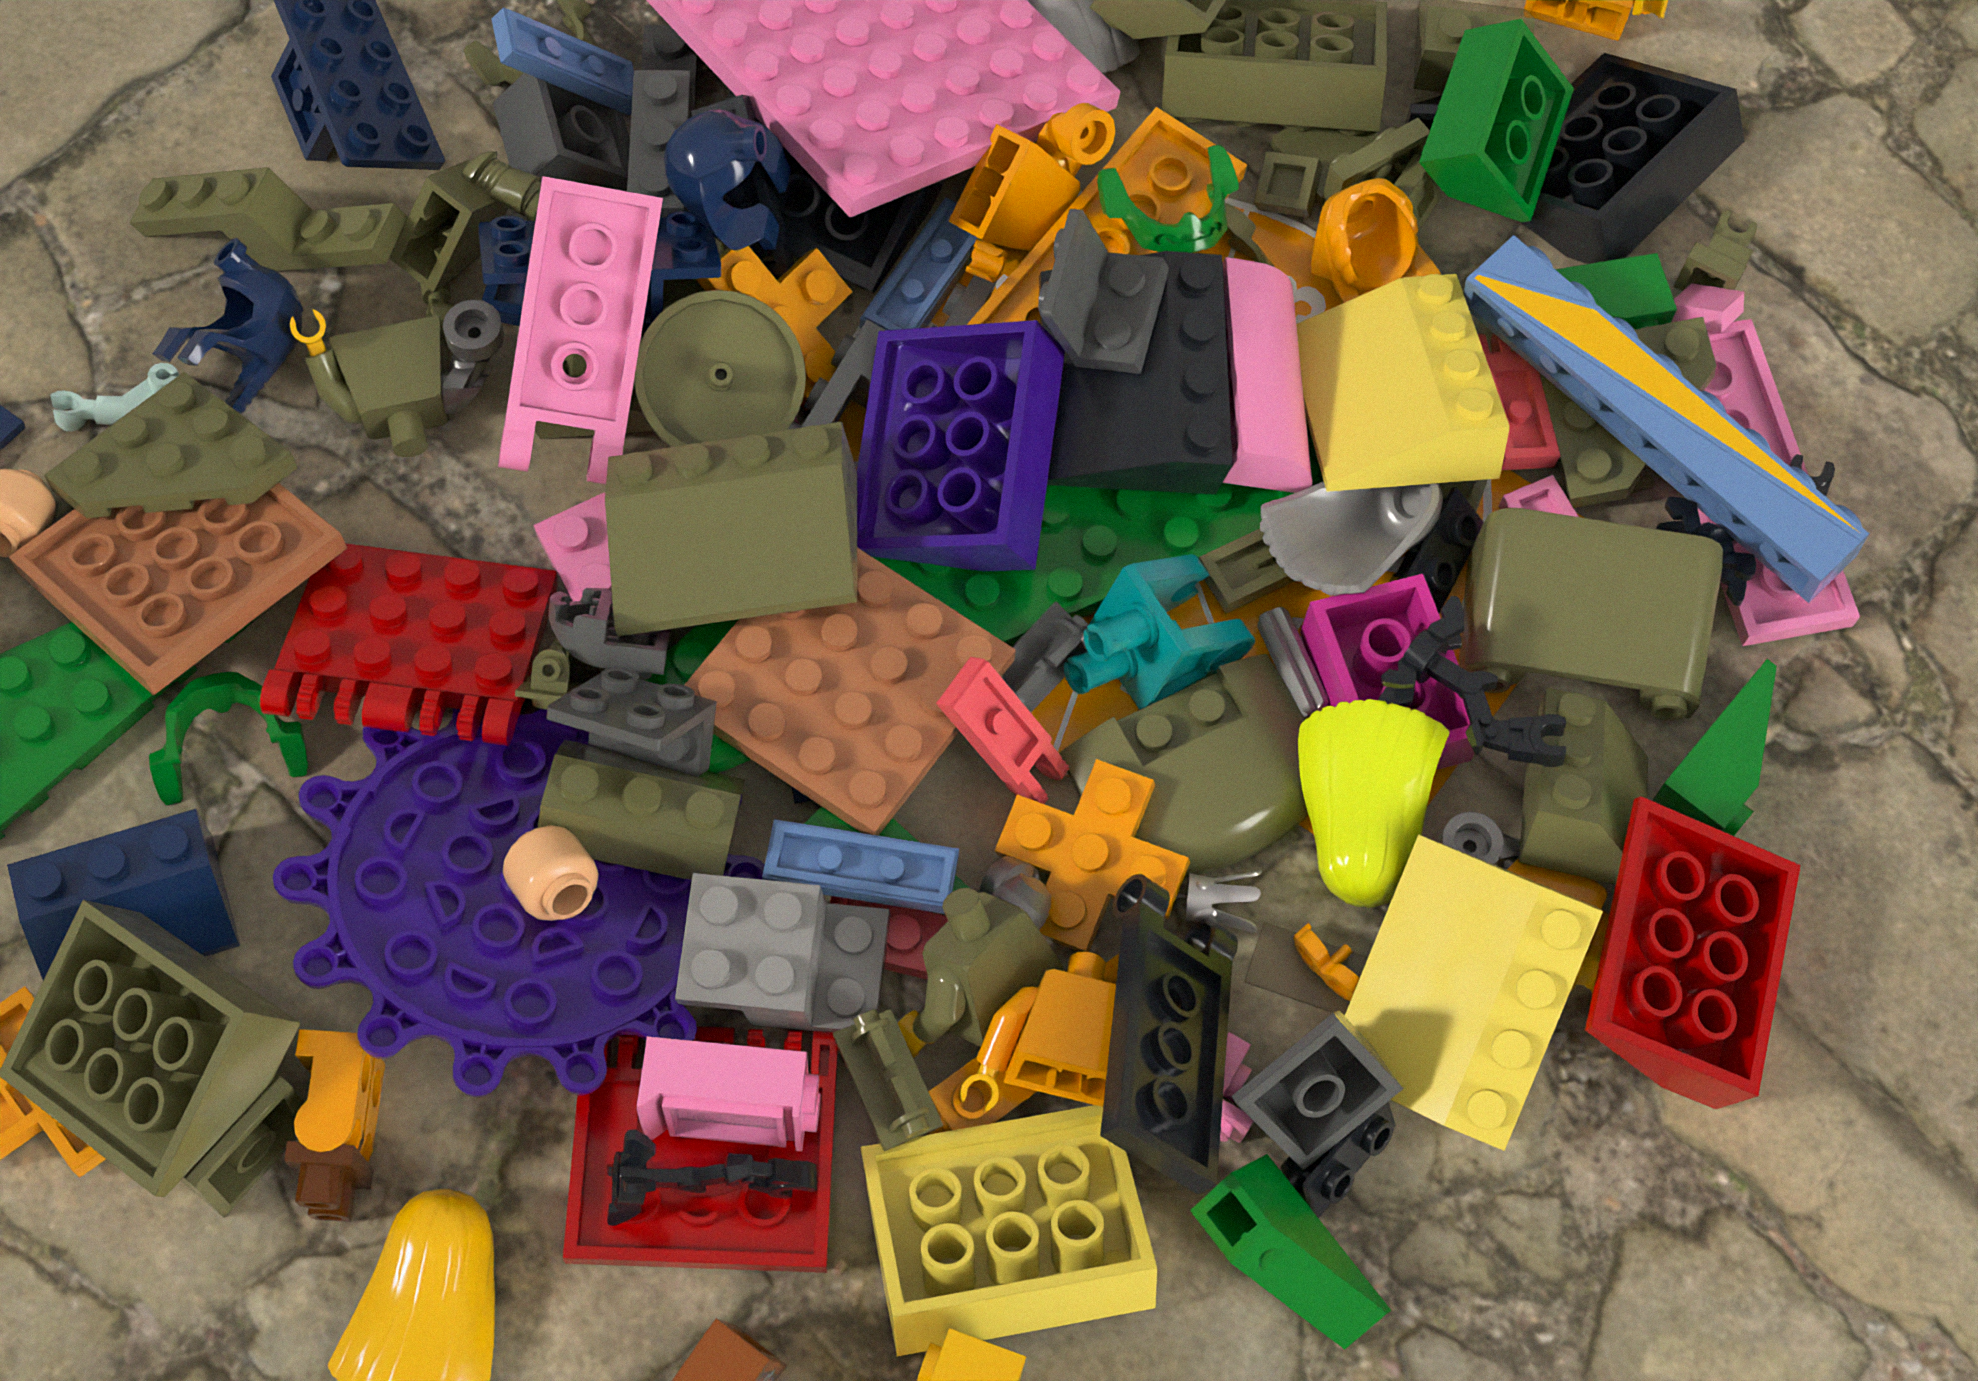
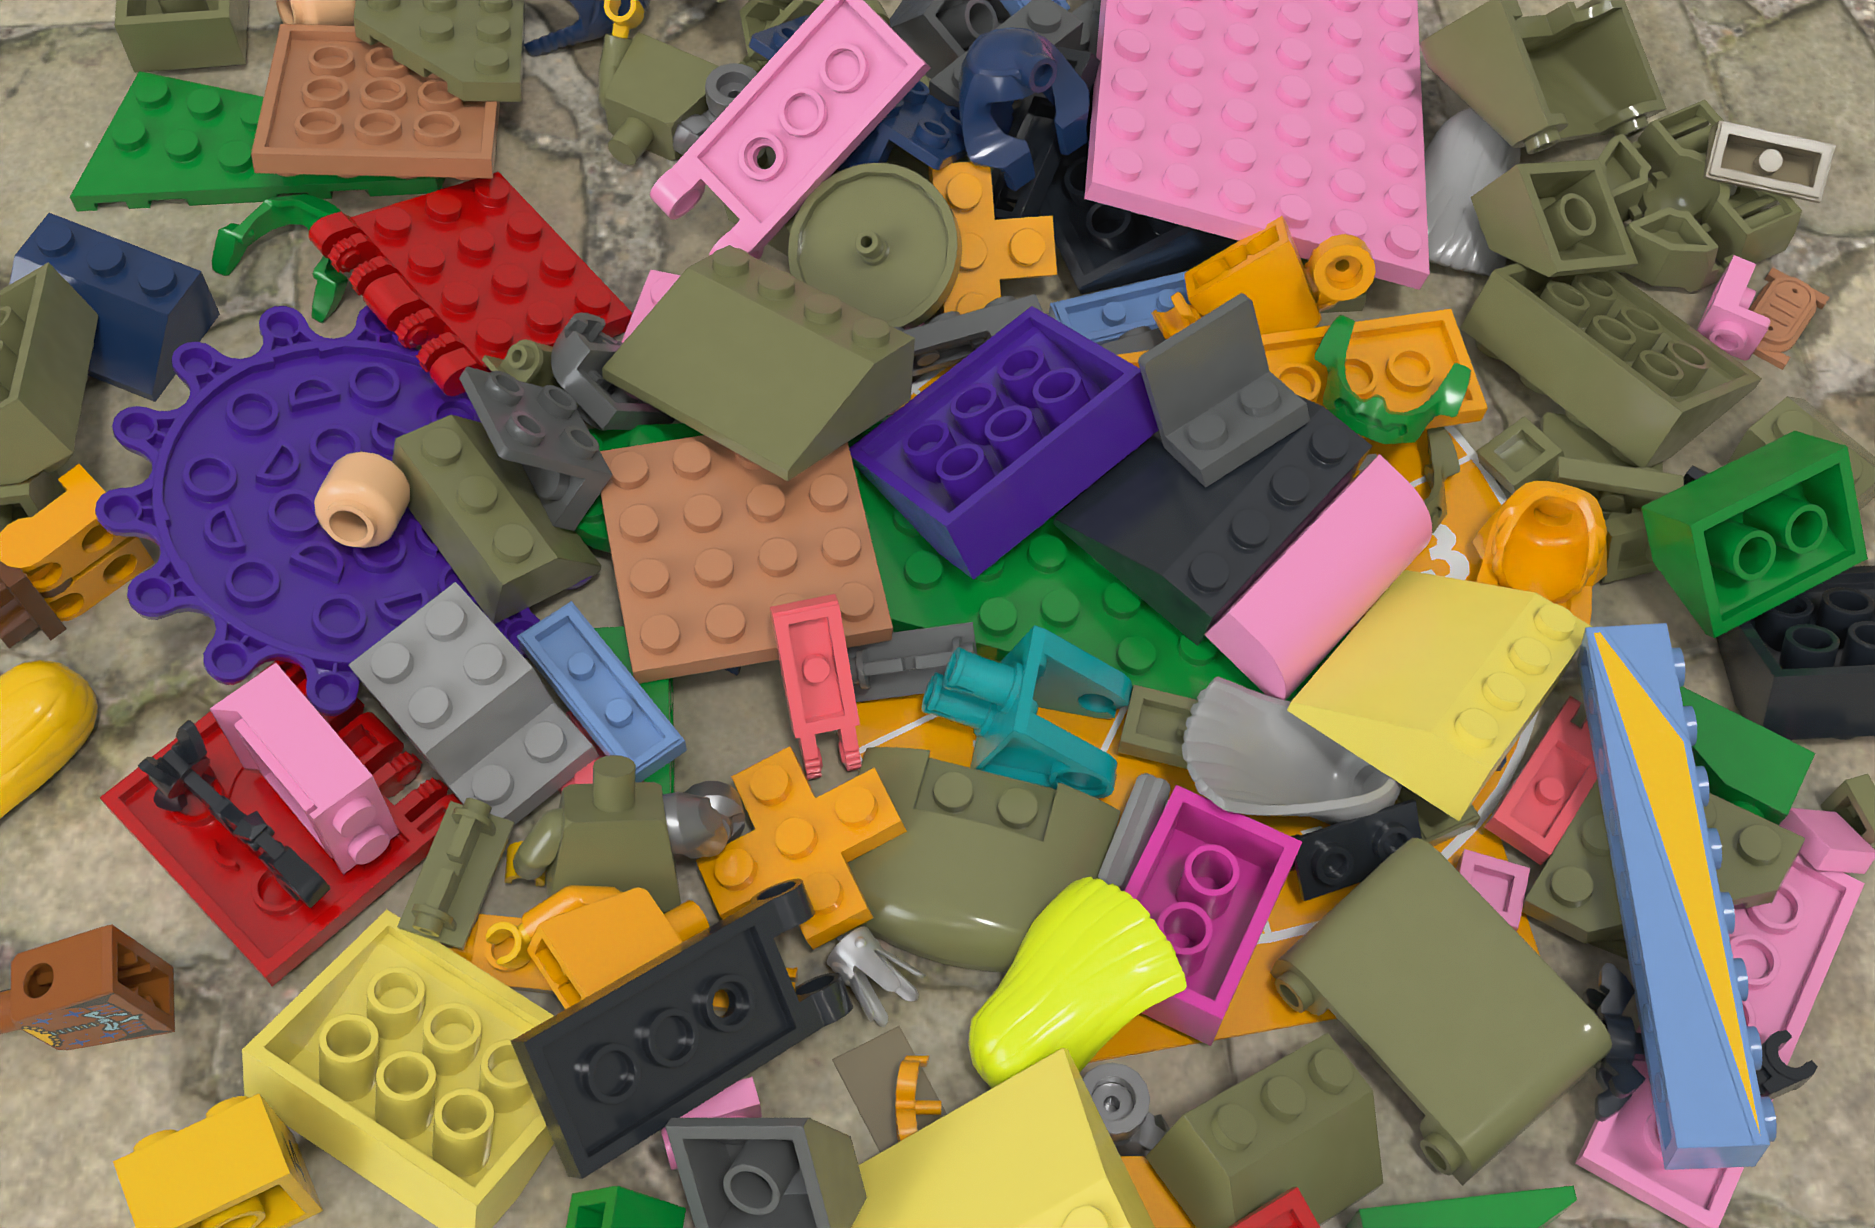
camera: 45 degrees right, 5 degrees down
(1426, 658) = (1221, 907): black piece -> none

